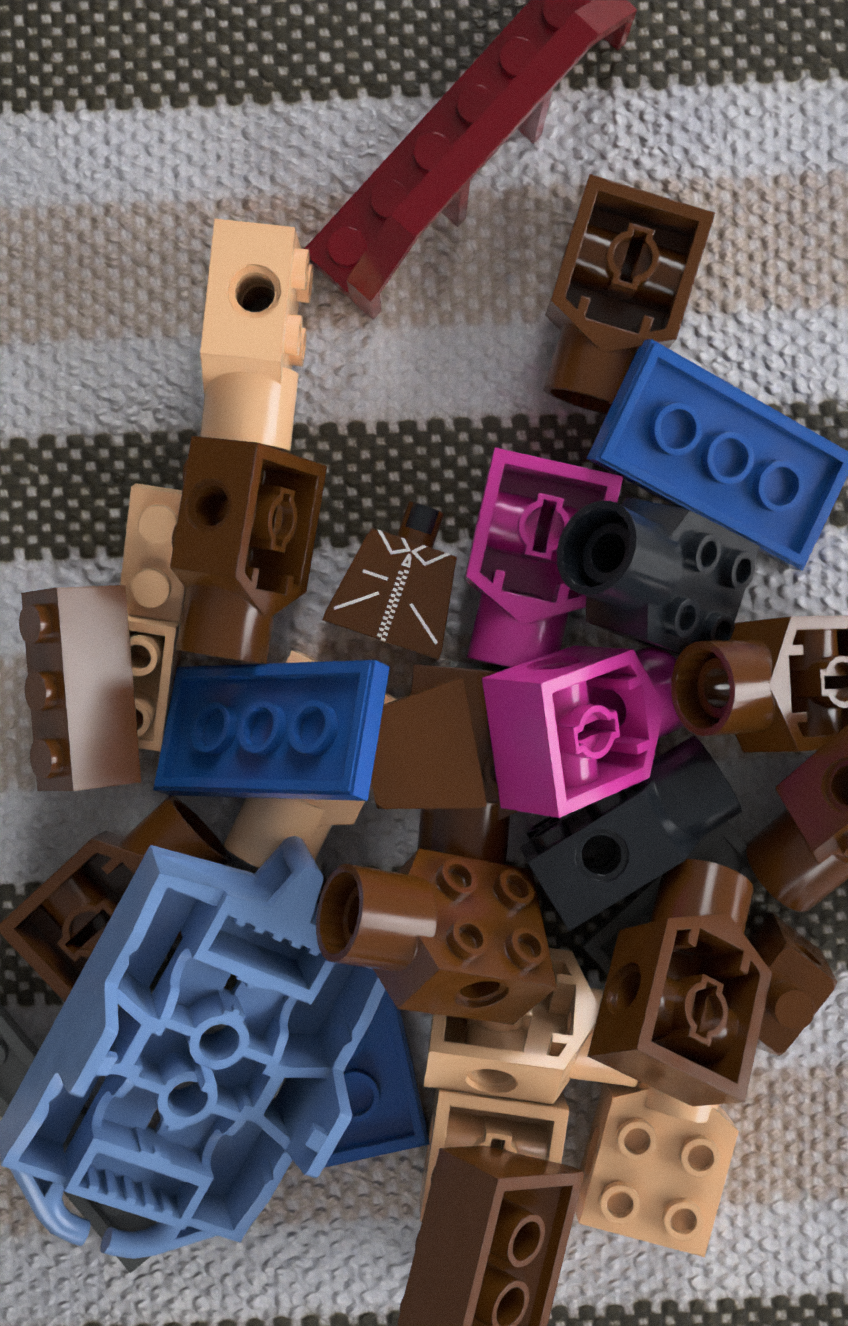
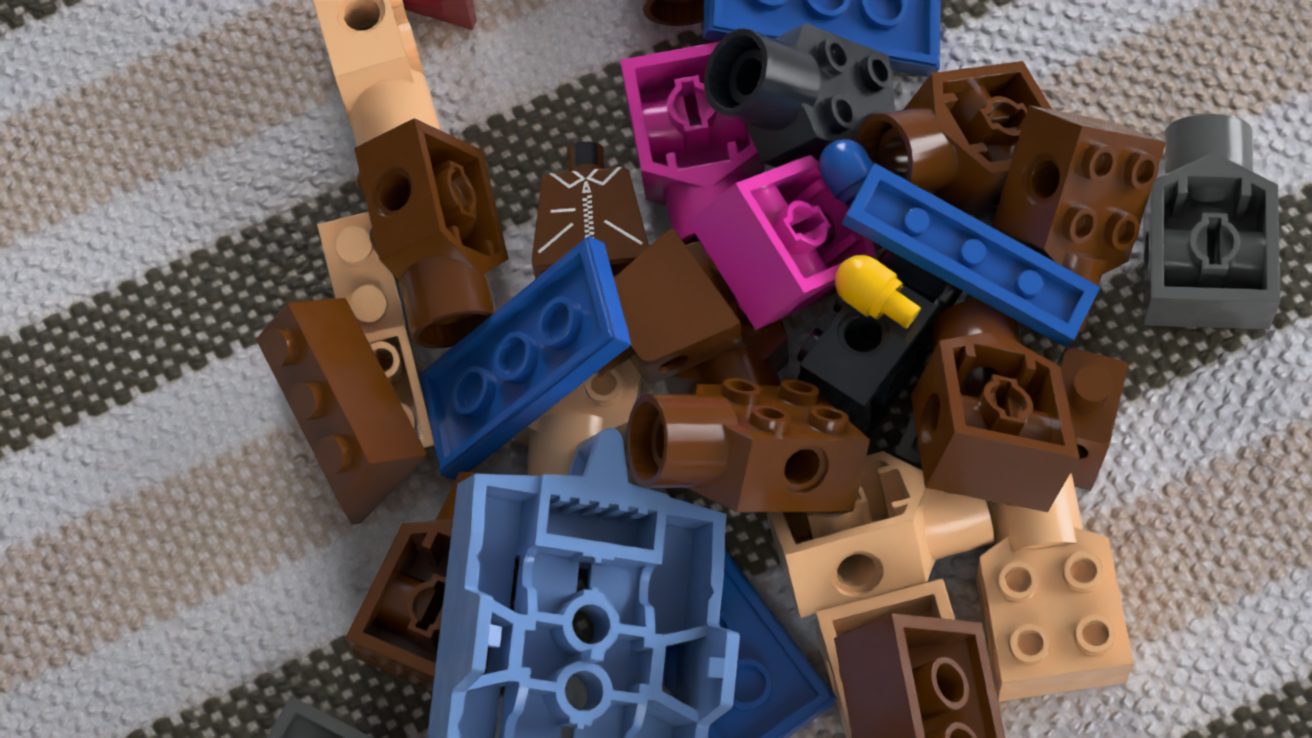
camera: 15 degrees left, 20 degrees down
(630, 829) = (874, 290): none -> yellow cylinder
(663, 693) = (844, 168): none -> blue cylinder
(738, 826) = (971, 255): none -> blue plate

